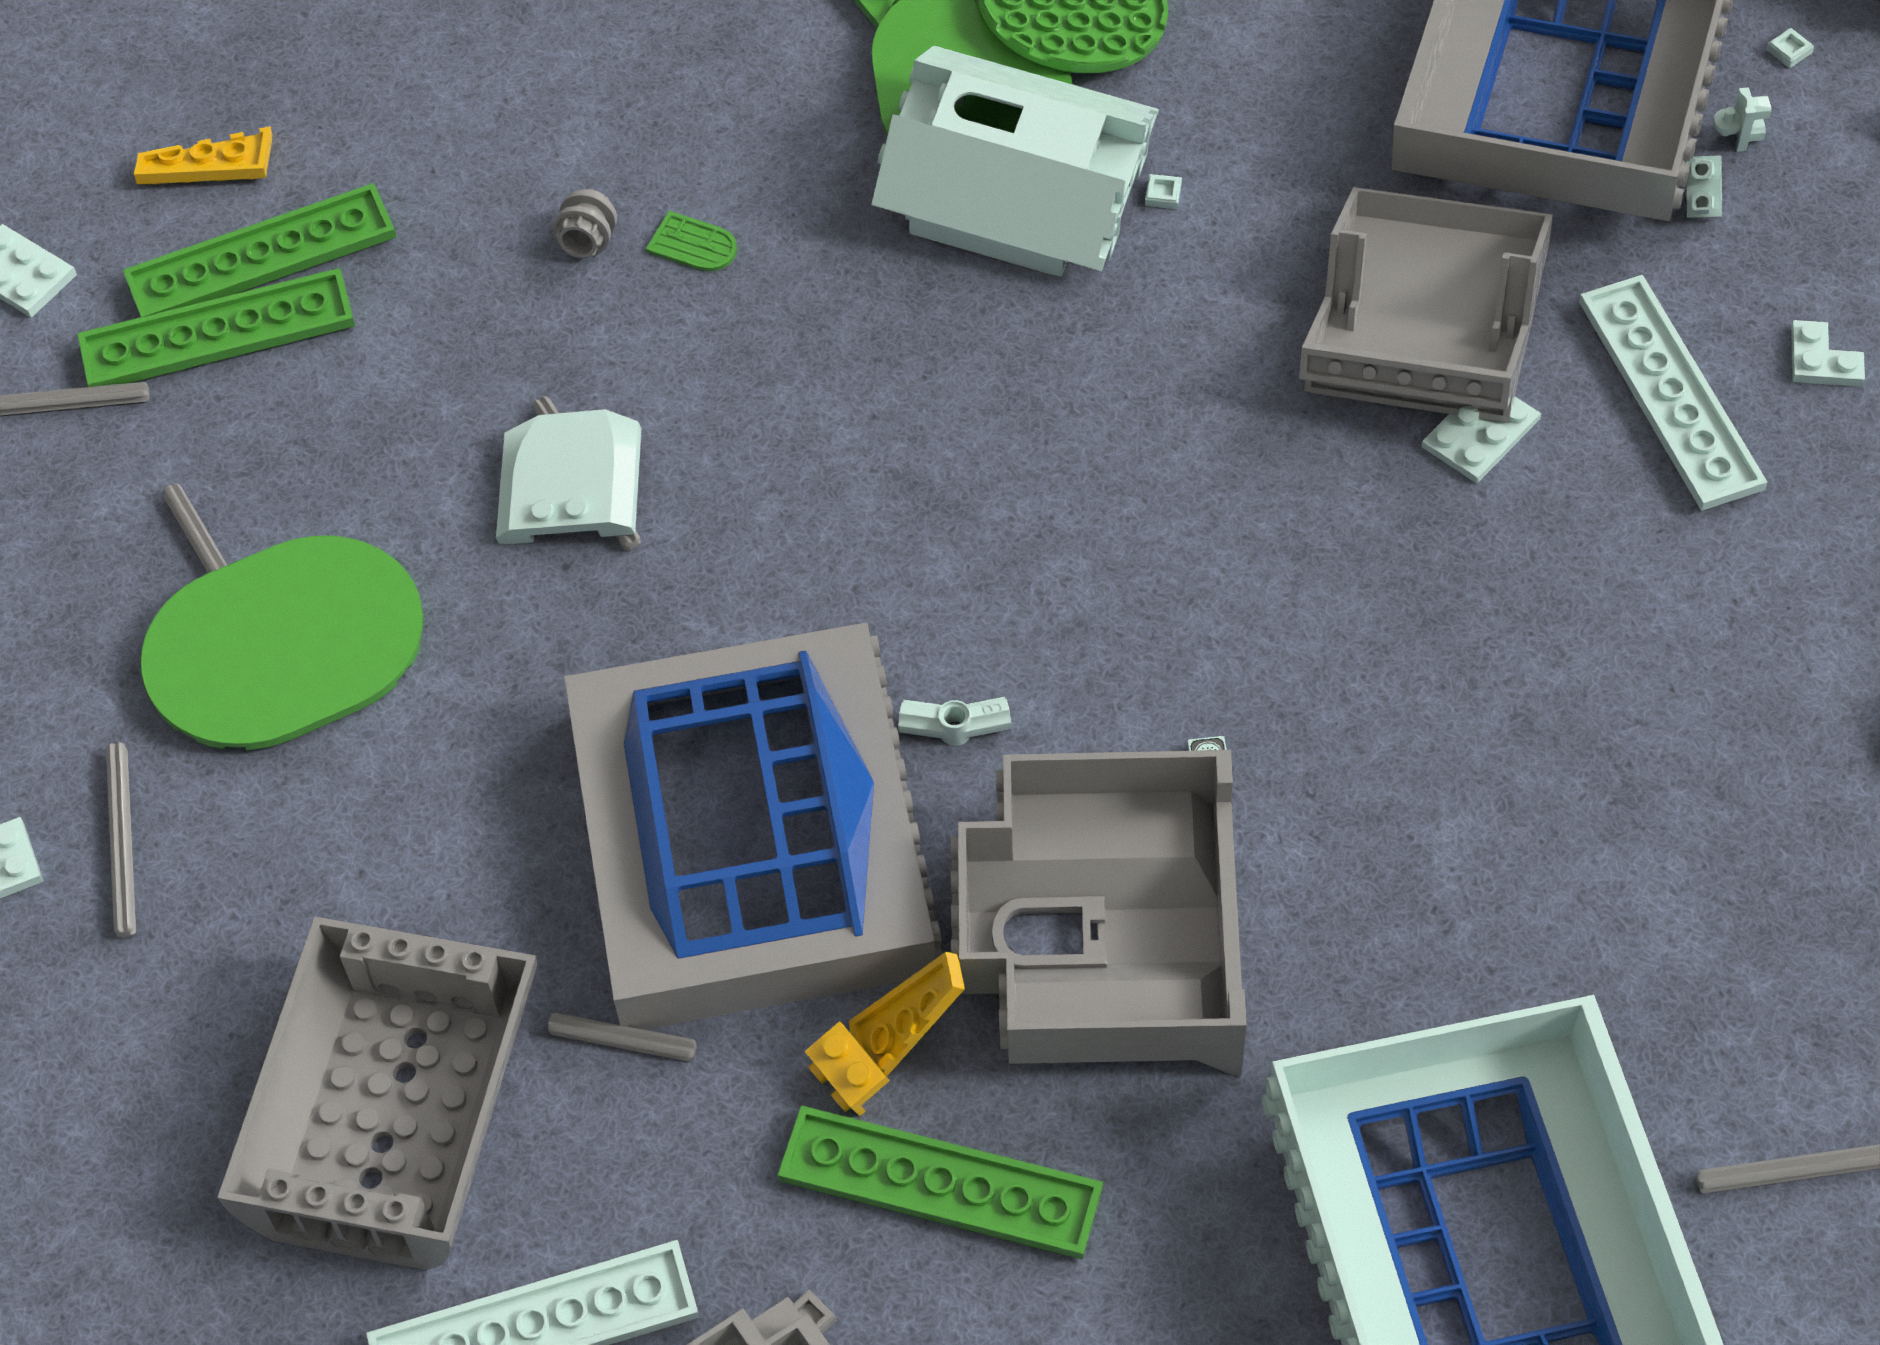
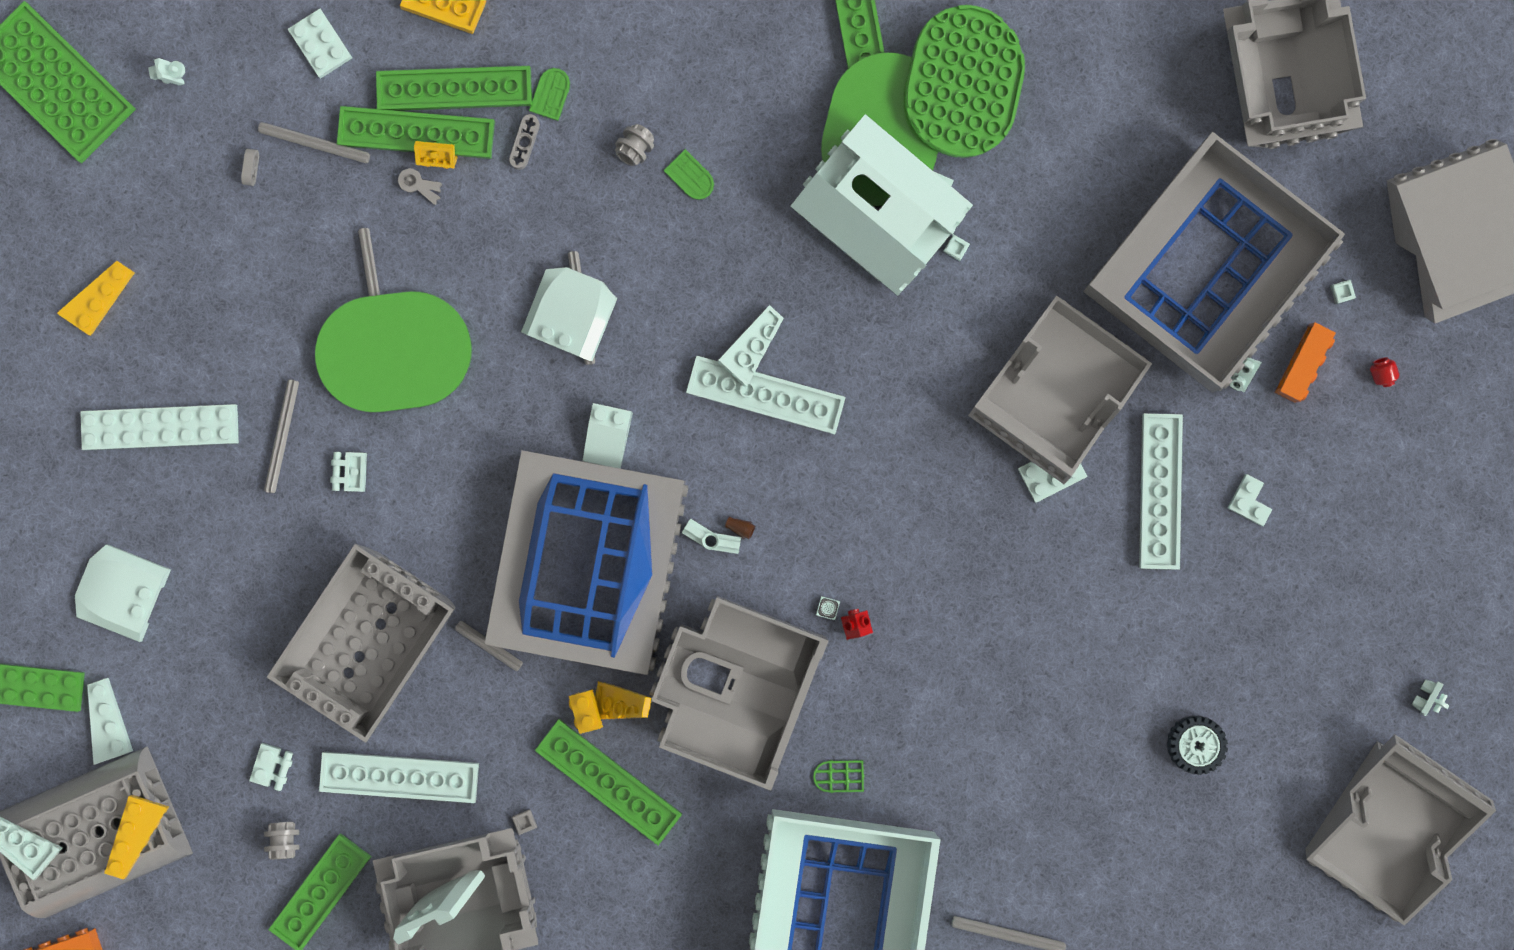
camera: 15 degrees right, 30 degrees up
(232, 396) = (411, 181): none -> light grey piece
(259, 339) = (435, 154): none -> yellow bracket
(274, 846) = (354, 471): none -> light aqua plate
(395, 275) = (533, 129): none -> light grey beam
(422, 214) = (551, 94): none -> bright green window
(702, 613) = (607, 435): none -> light aqua slope
(894, 421) = (746, 353): none -> light aqua wing
(951, 484) = (767, 396): none -> light aqua plate
(996, 685) = (740, 527): none -> reddish brown cone
(1270, 754) = (856, 624): none -> red brick
(1370, 1005) = (846, 771): none -> bright green window
(1744, 119) = (1287, 338): light aqua hips -> none
(1790, 148) = (1305, 362): none -> orange brick

